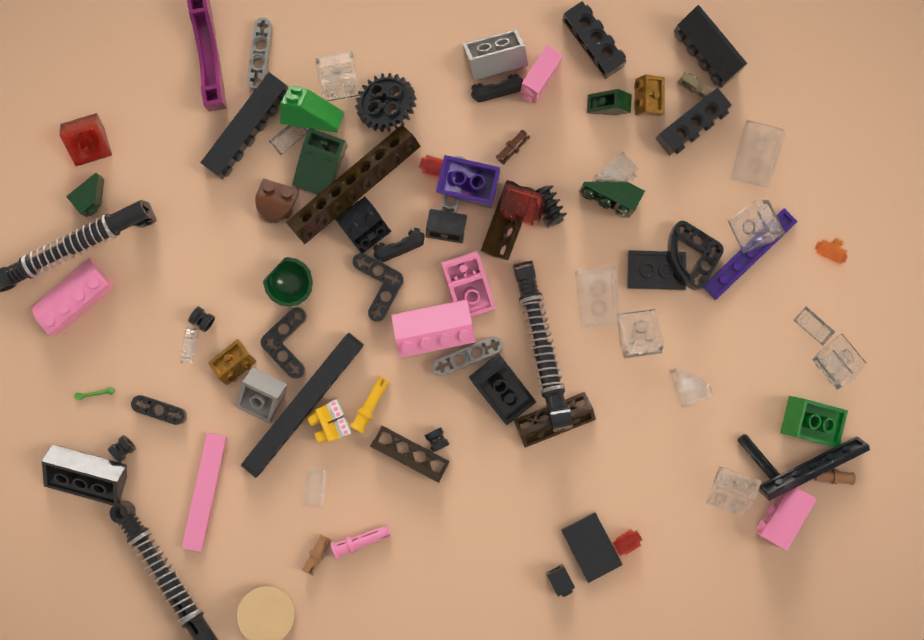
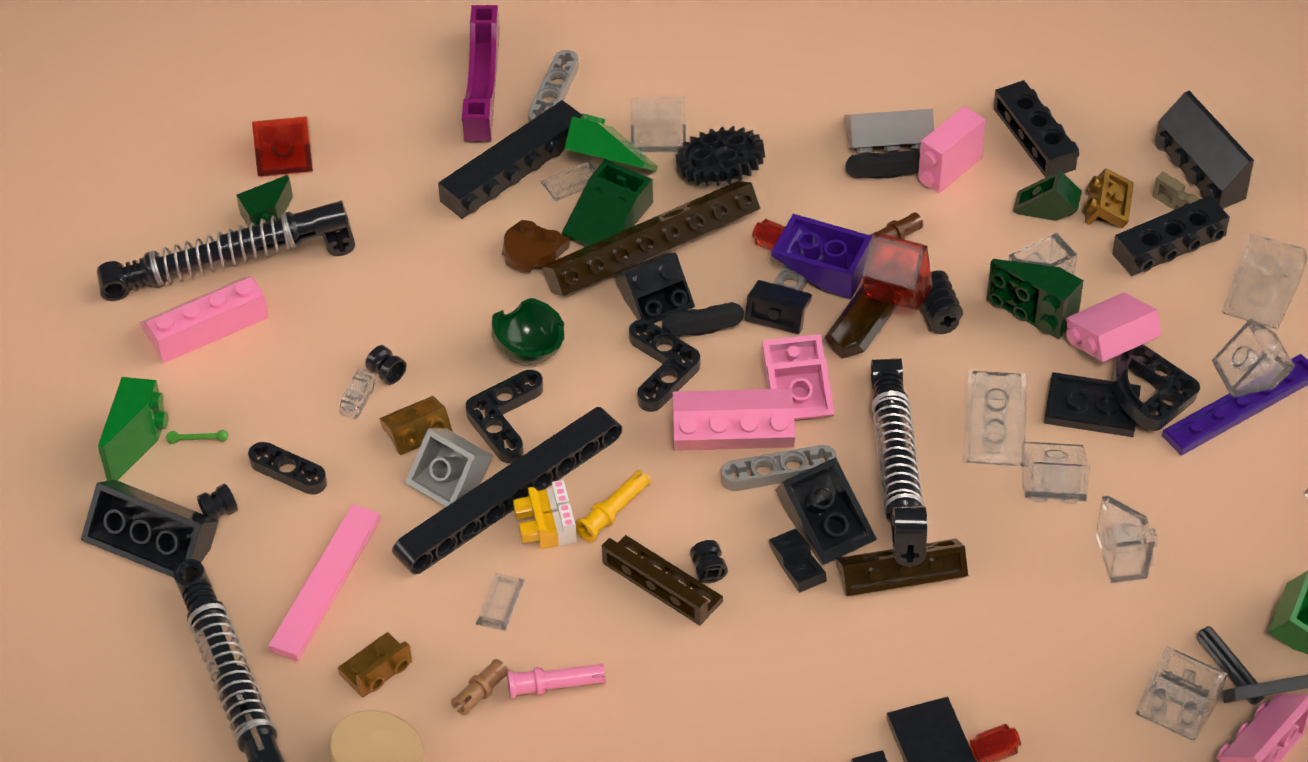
camera: 10 degrees right, 35 degrees down
(49, 405) = (131, 425): none -> green slope
(249, 548) = (376, 664): none -> pearl gold bracket
(490, 425) = (796, 560): none -> black slope
(665, 213) = (1113, 327): none -> bright pink brick

